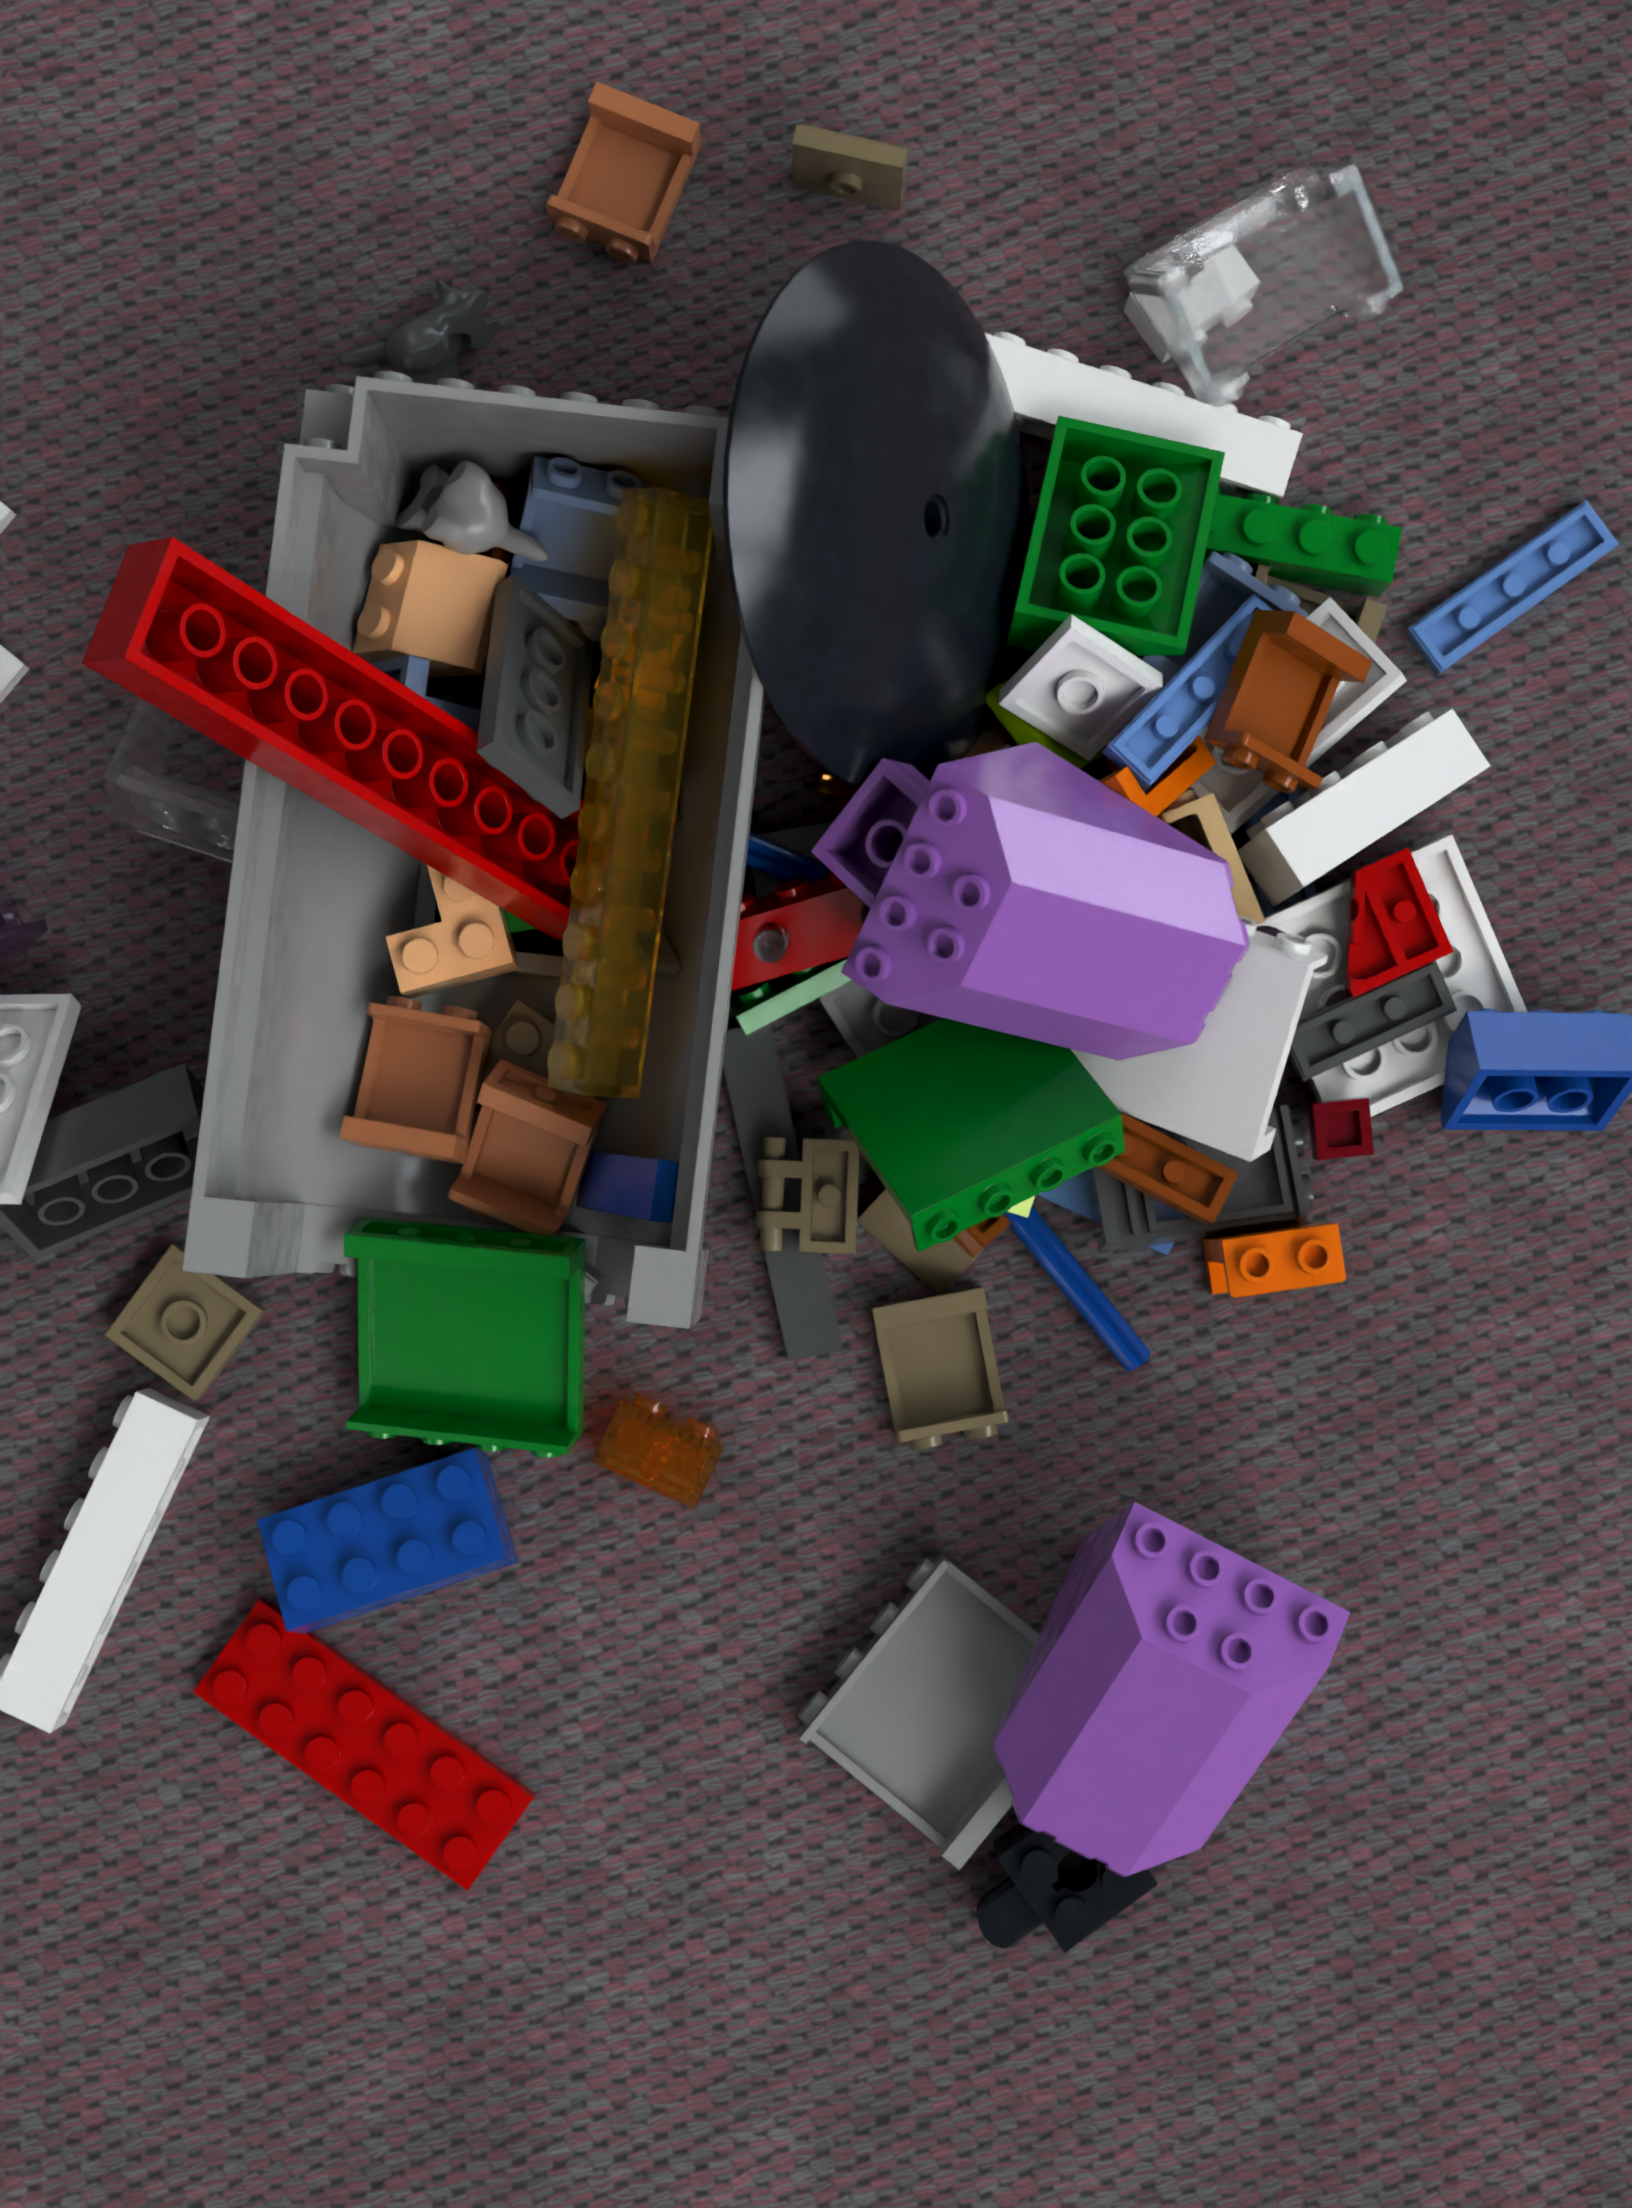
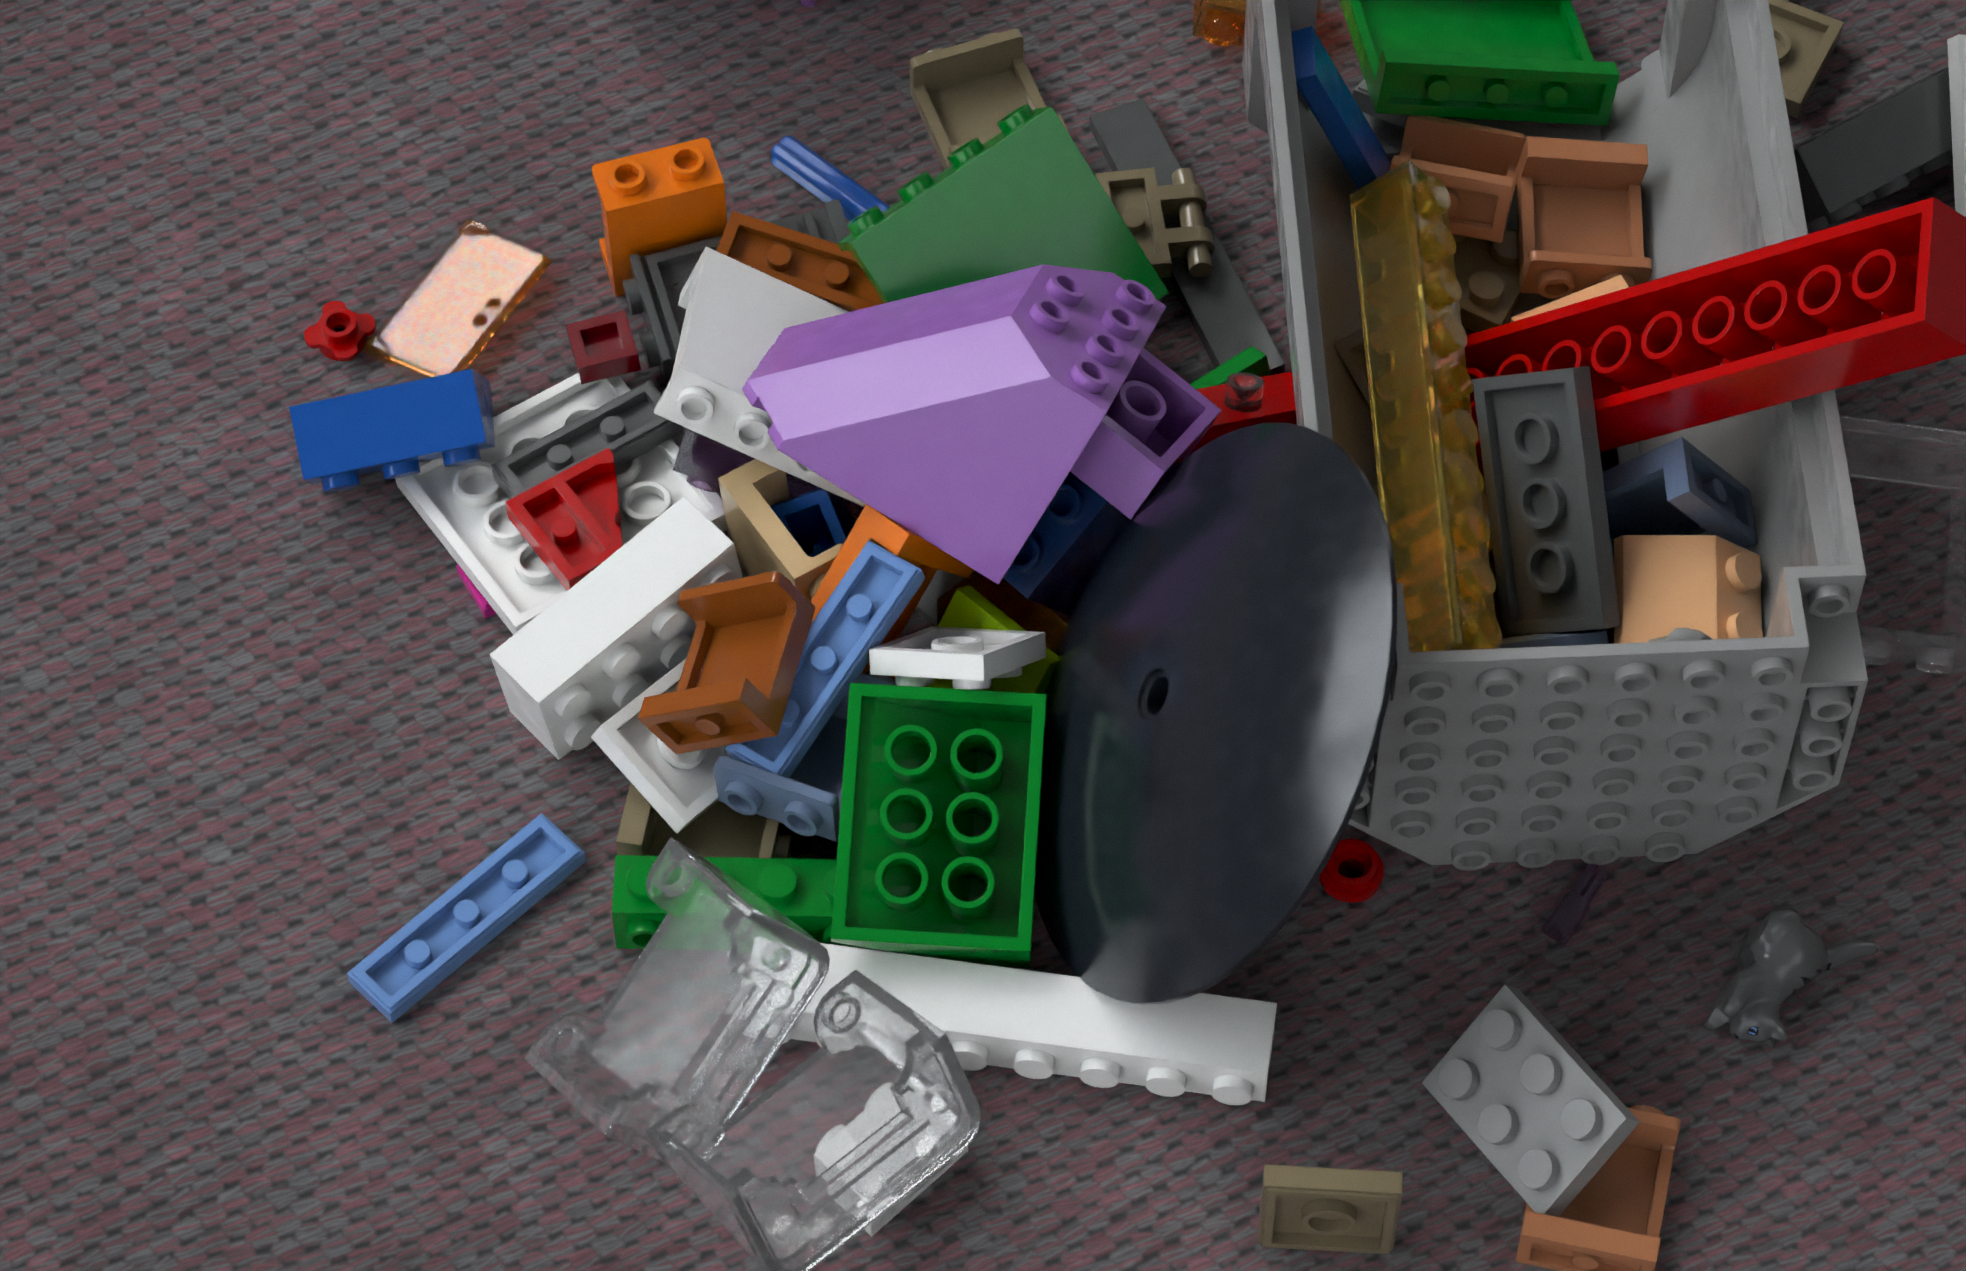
camera: 170 degrees right, 30 degrees down
(665, 235) = (1530, 1102): none -> light grey plate
(1362, 417) = (692, 1012): none -> clear windscreen
(1465, 1235) = (450, 310): none -> clear orange door
(1556, 1217) = (343, 344): none -> red plate

